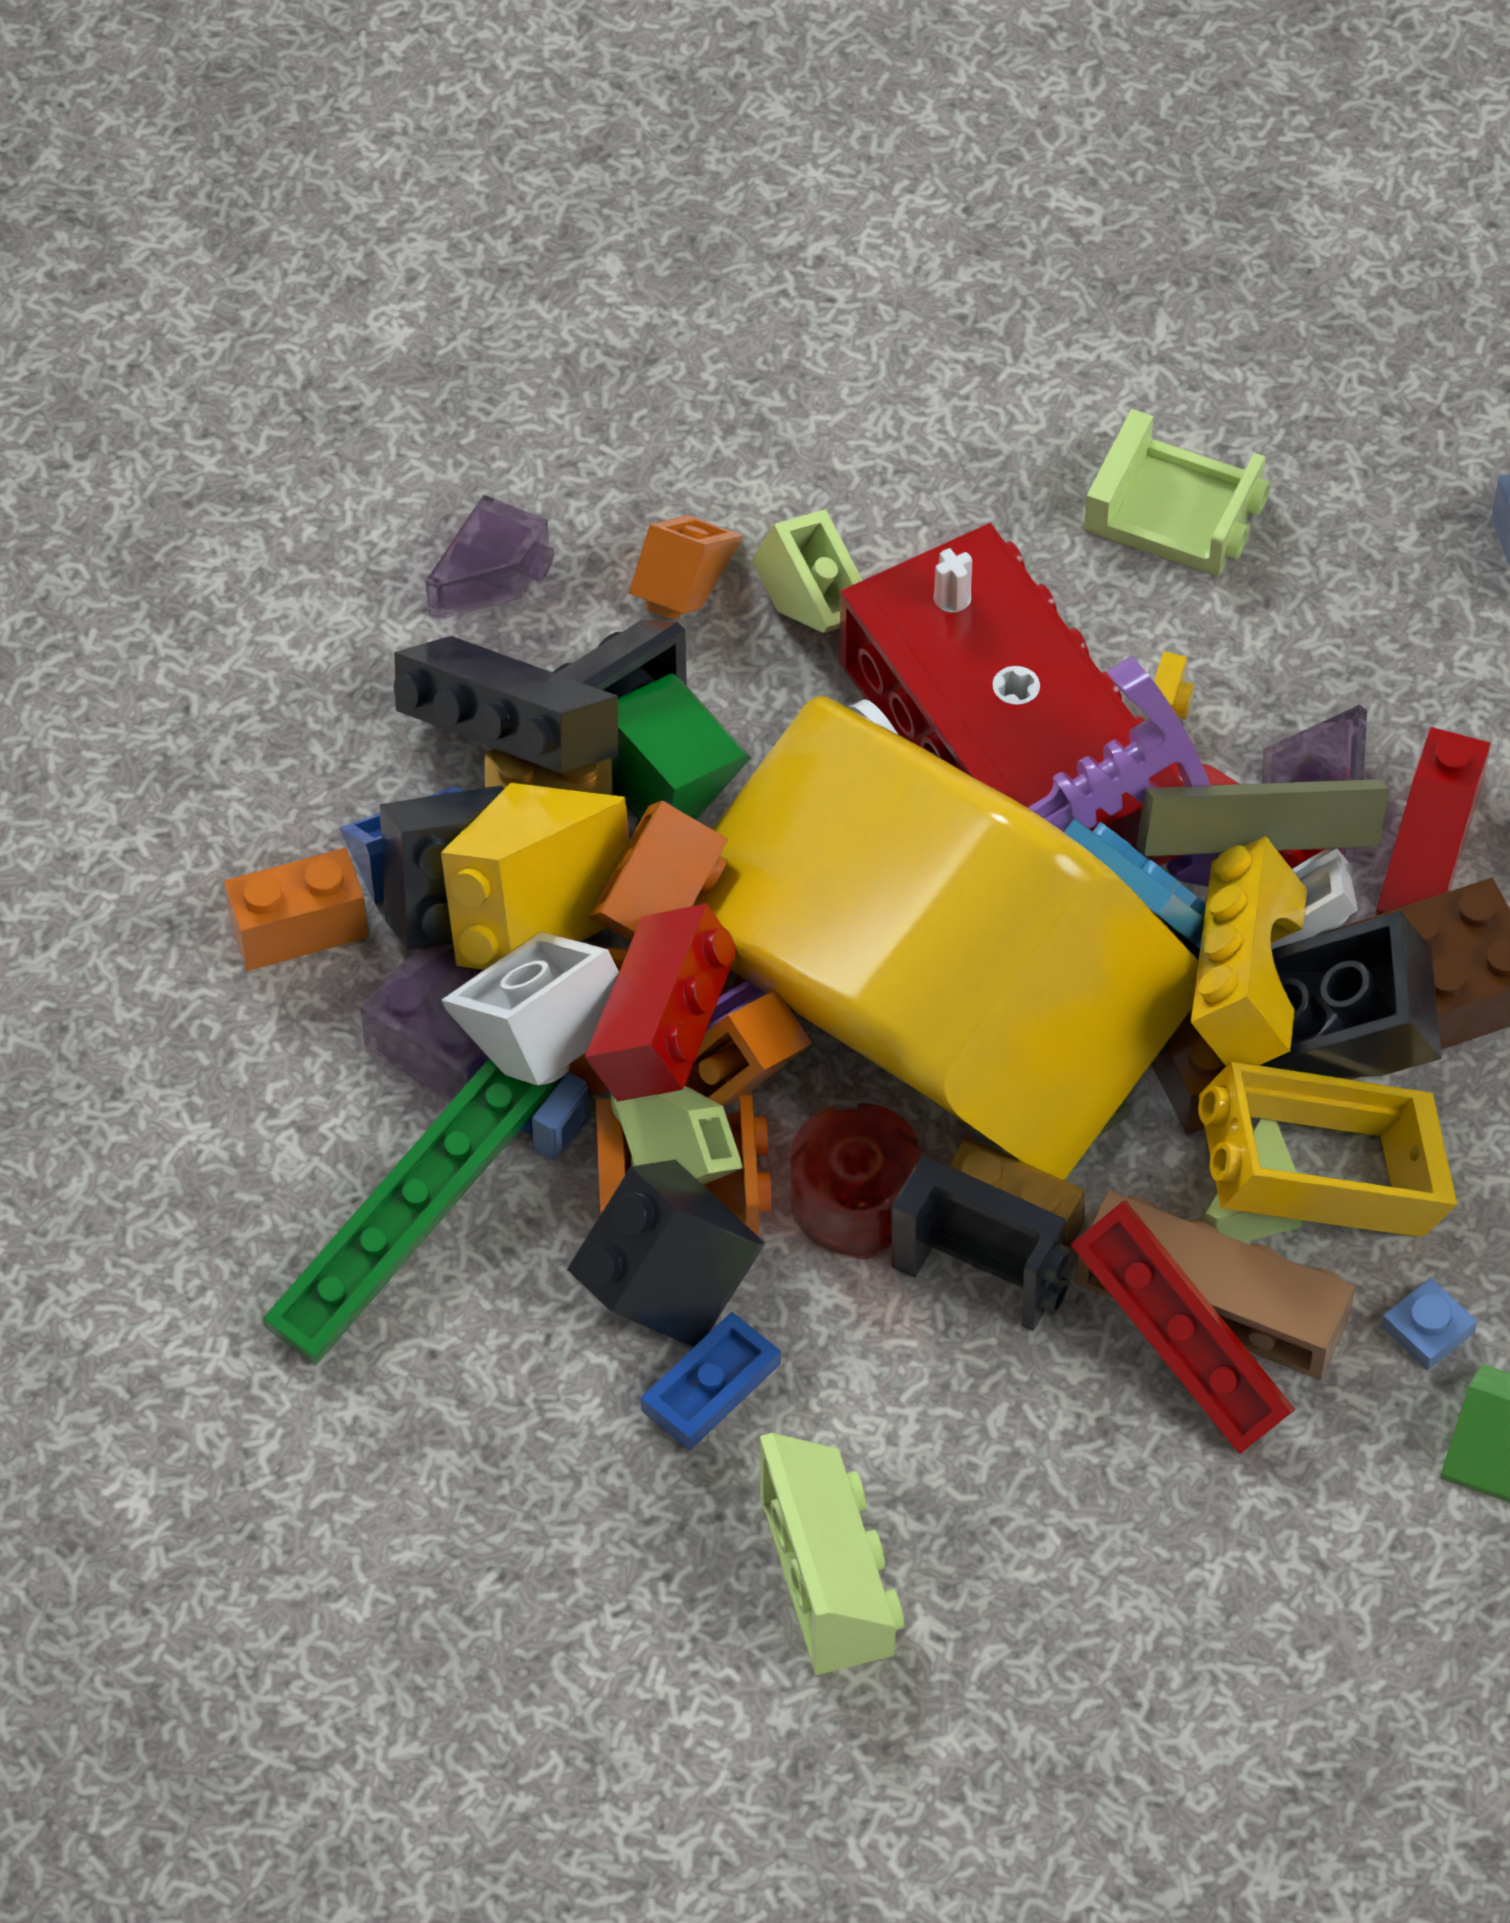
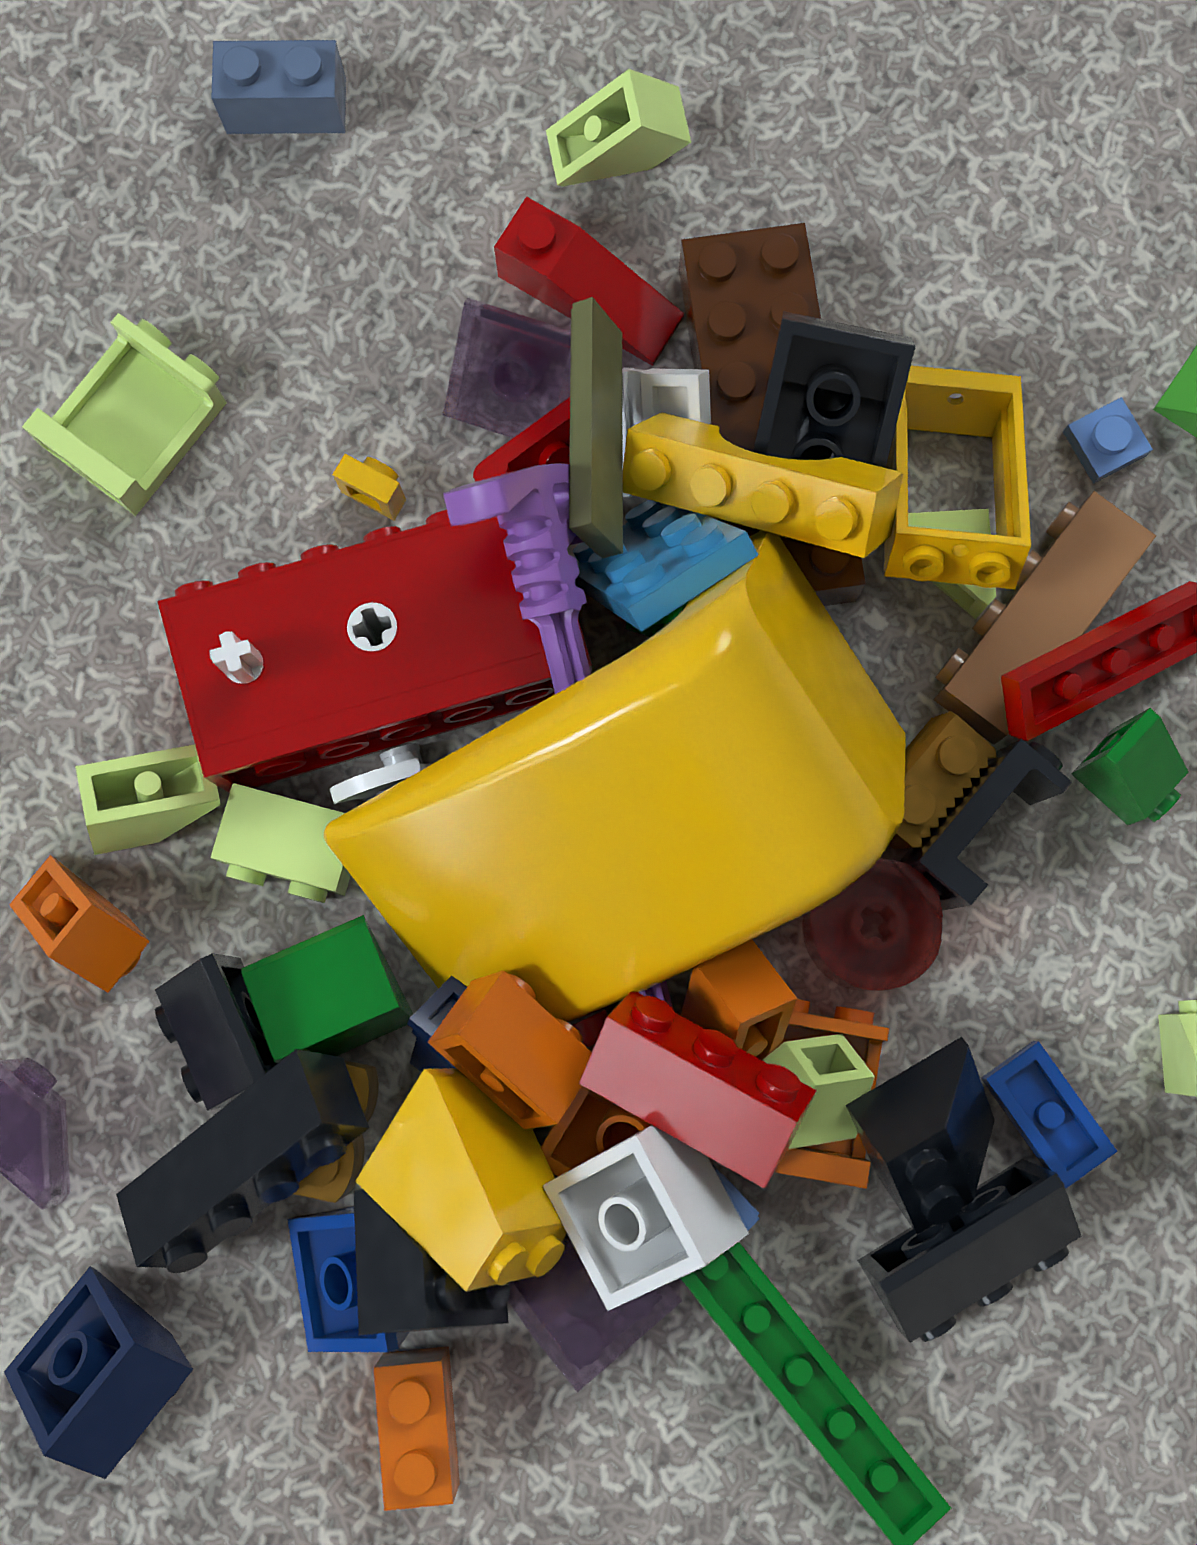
camera: 75 degrees left, 25 degrees up
(285, 666) = (95, 1376): none -> dark blue slope
(562, 1314) = (1010, 1226): none -> black slope
(795, 674) = (279, 839): none -> yellowish green brick
(1078, 1373) = (1135, 769): none -> green slope

